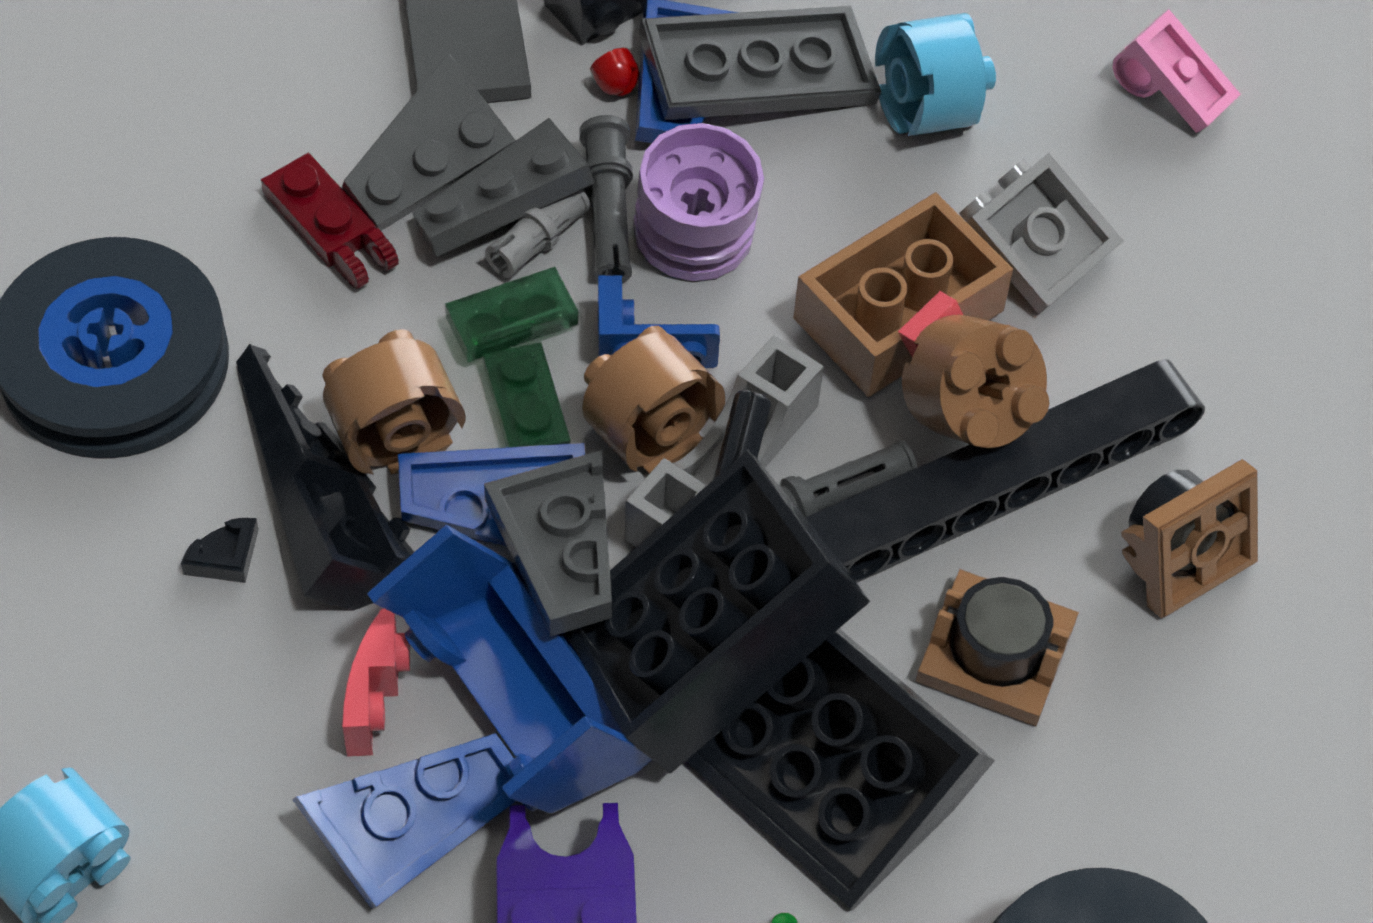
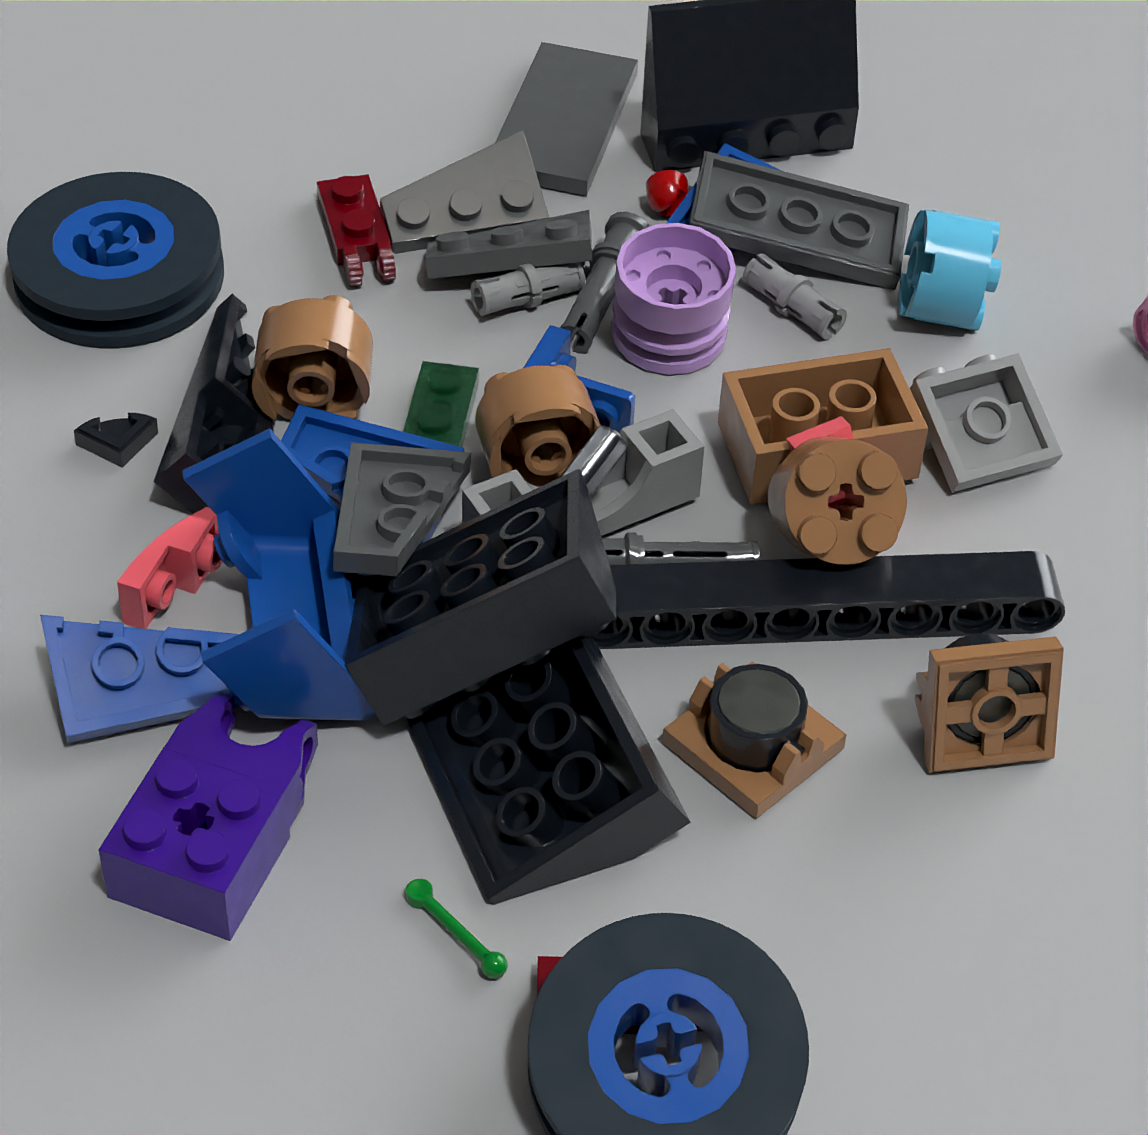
camera: 25 degrees right, 10 degrees down
(511, 314) = (466, 339): clear green plate -> none
(796, 149) = (794, 296): none -> light grey pin

